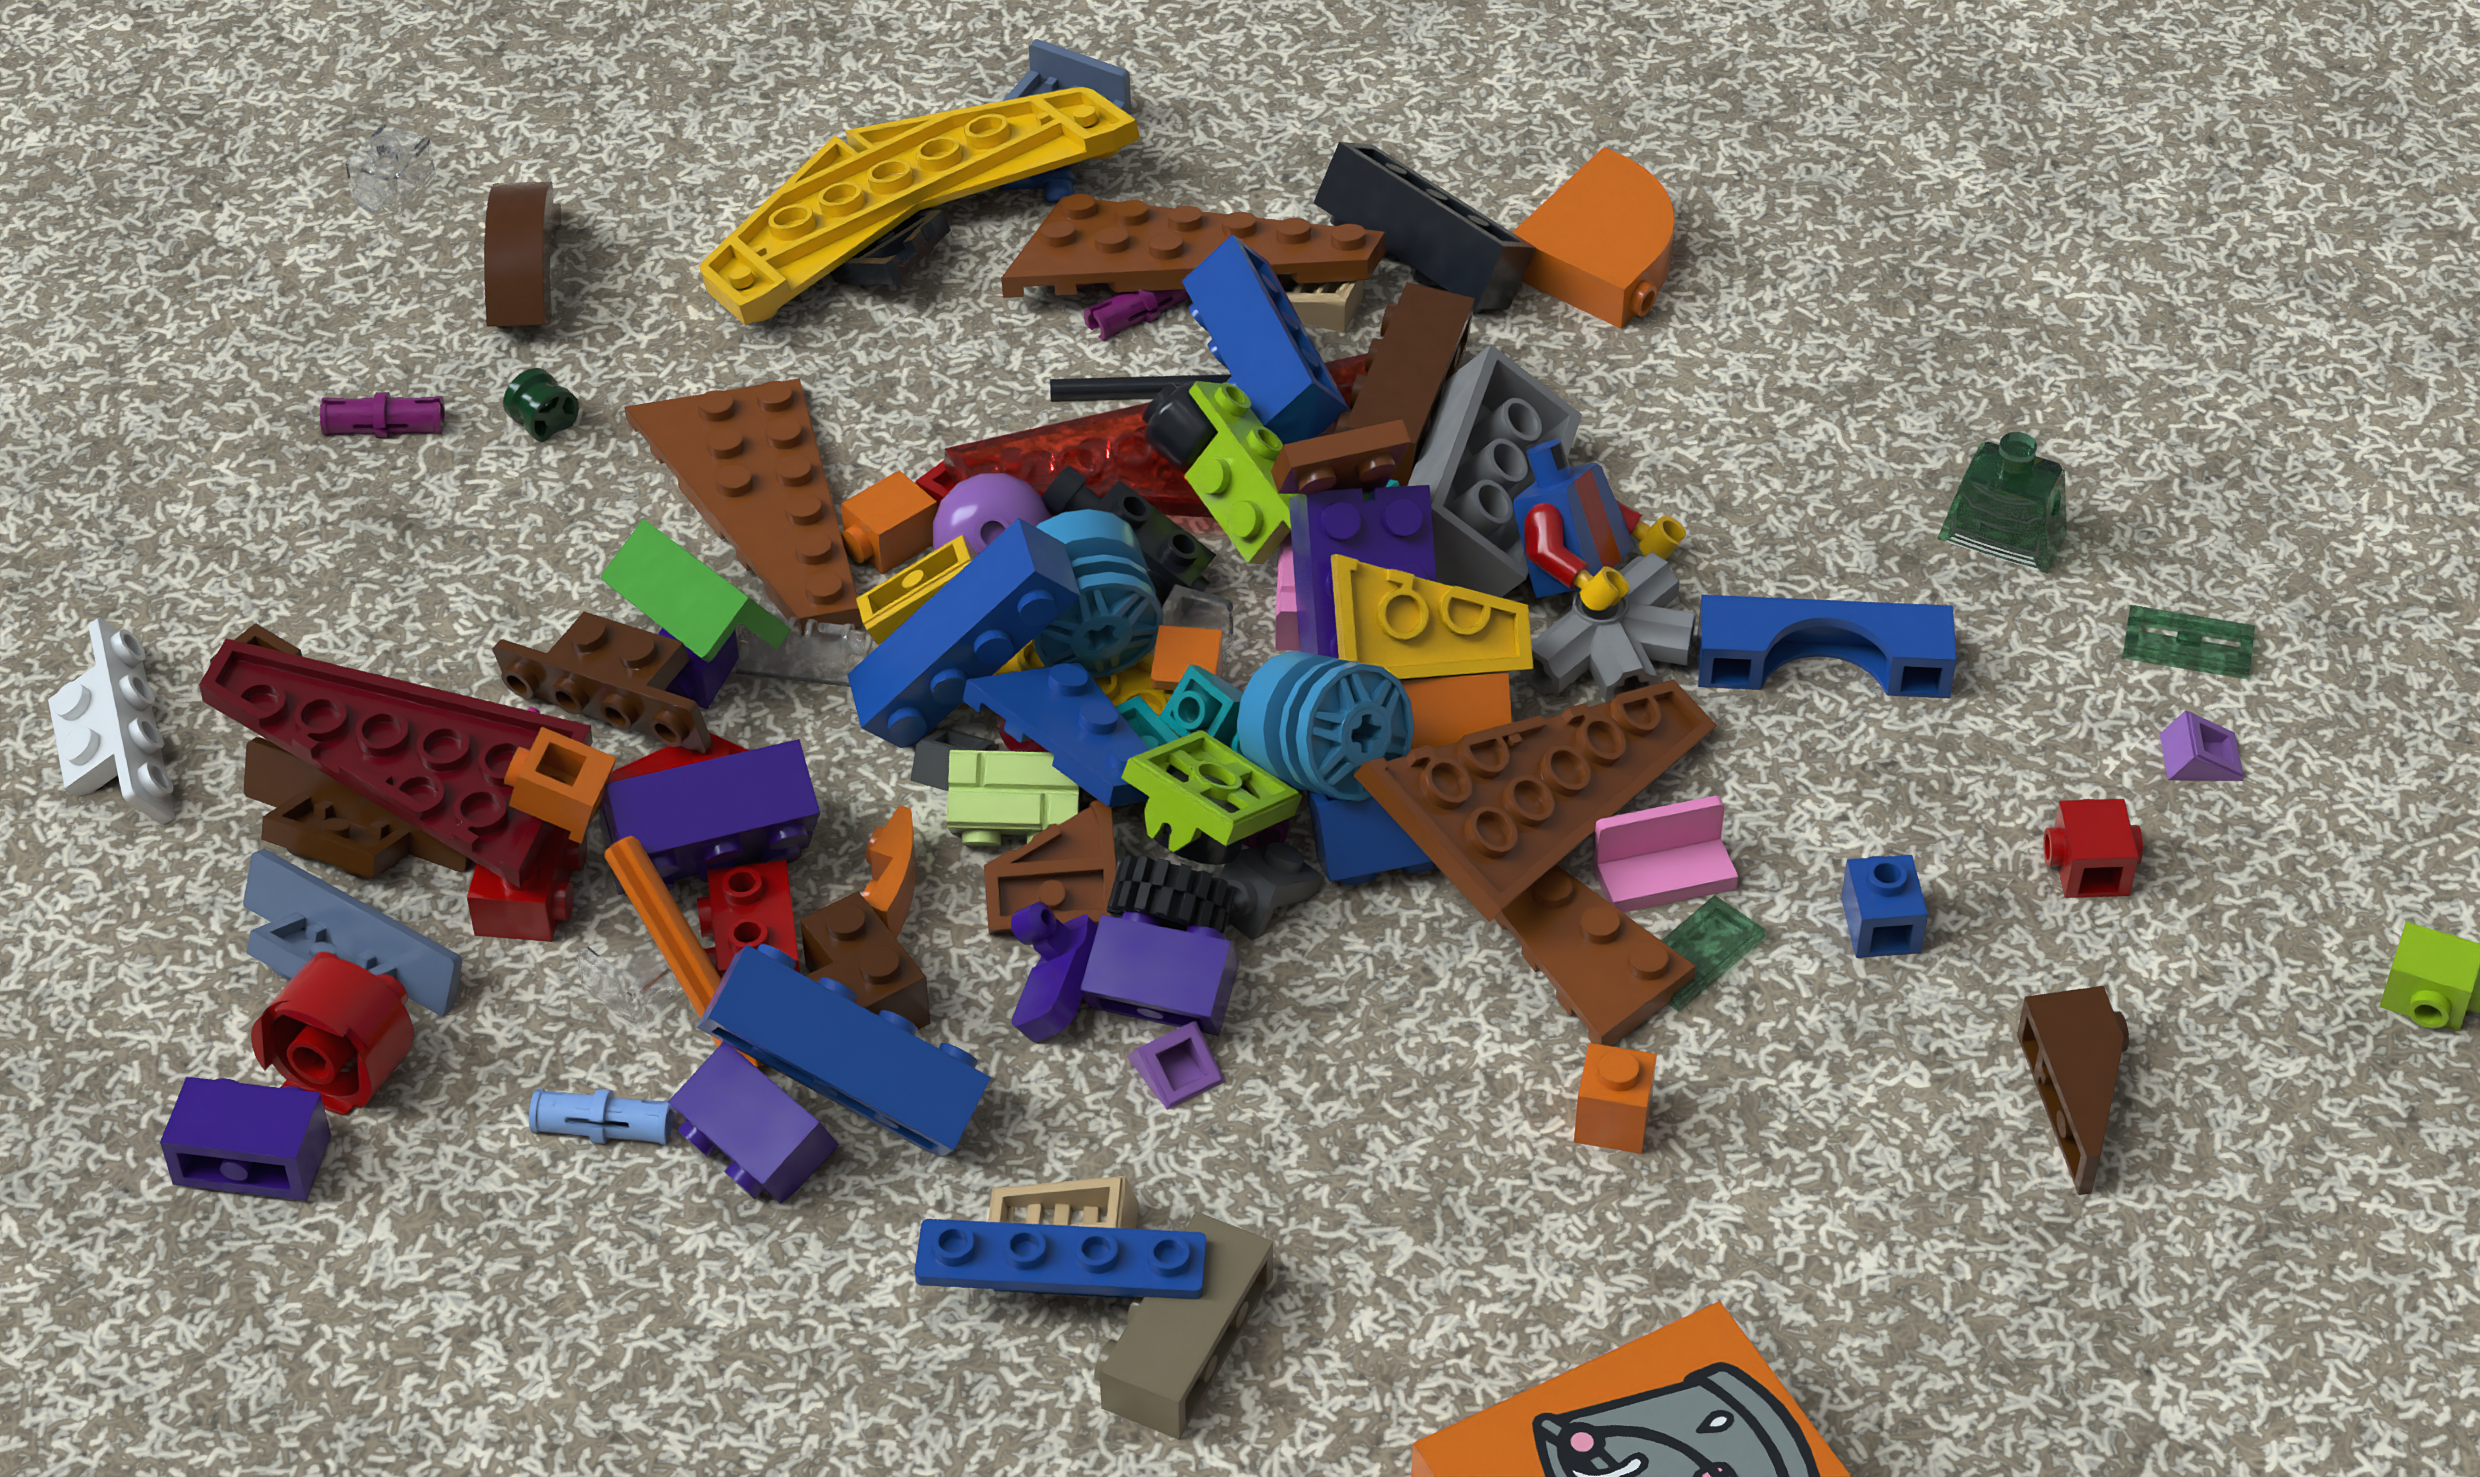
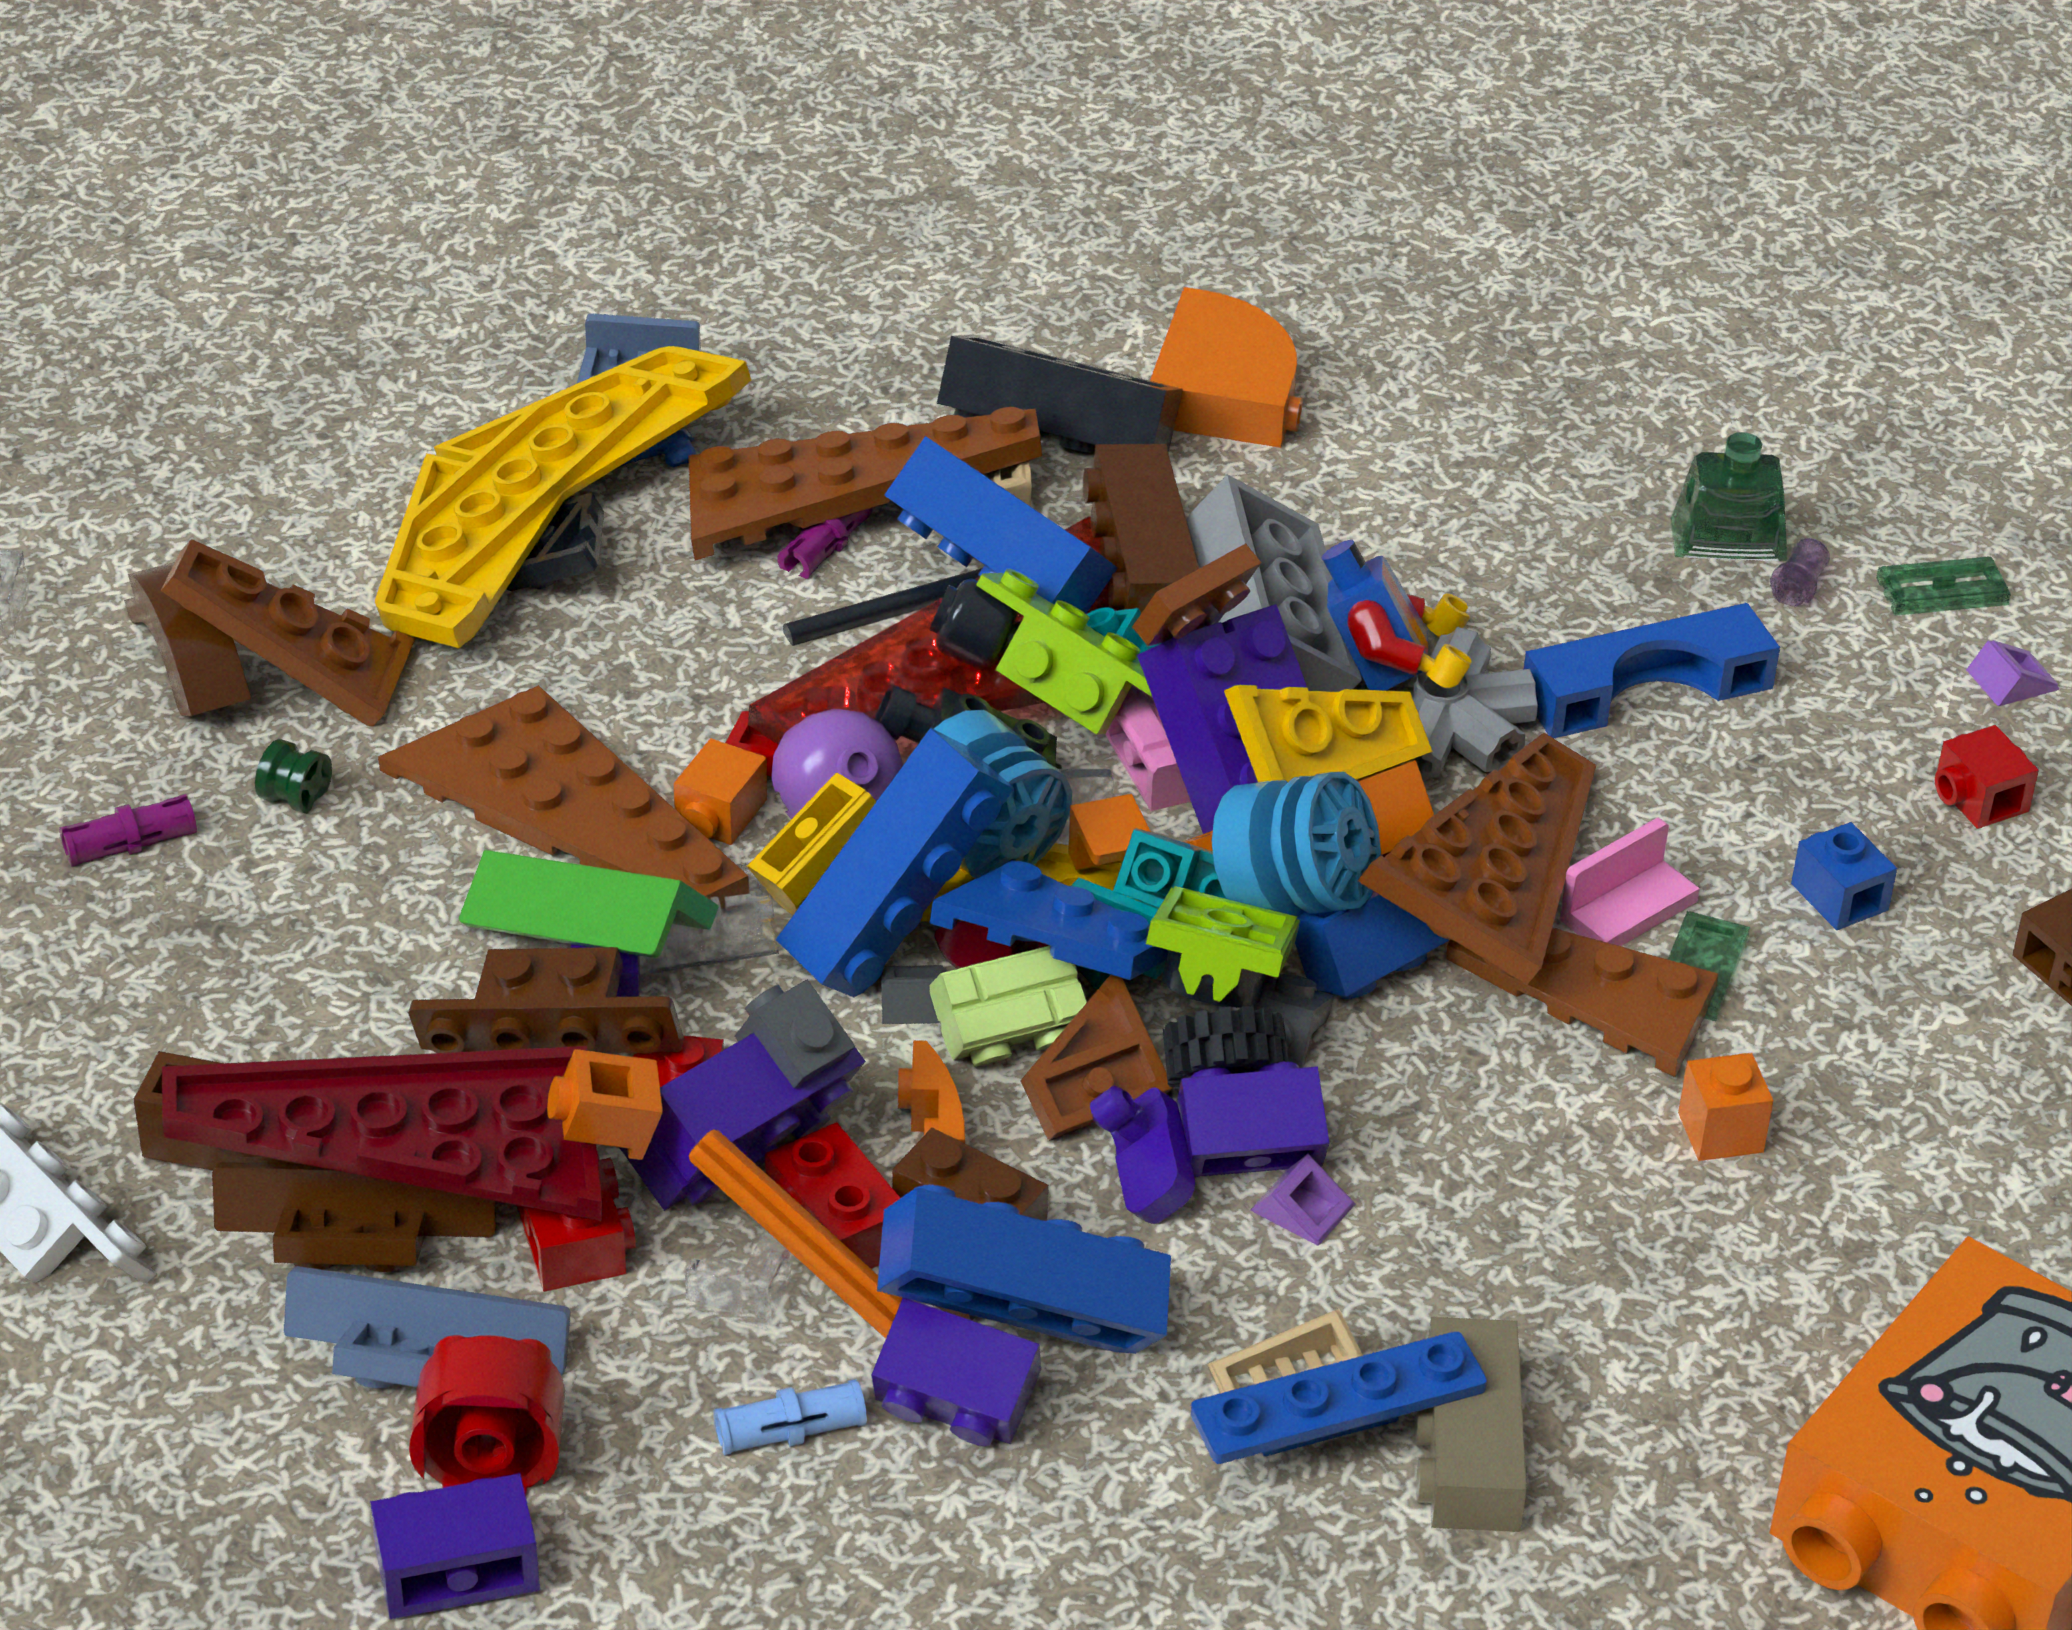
camera: 25 degrees left, 5 degrees down
(617, 290) = (309, 643): none -> dark orange wing
(760, 767) = (797, 1031): none -> dark grey bracket
(2046, 589) = (1800, 573): none -> clear purple pin

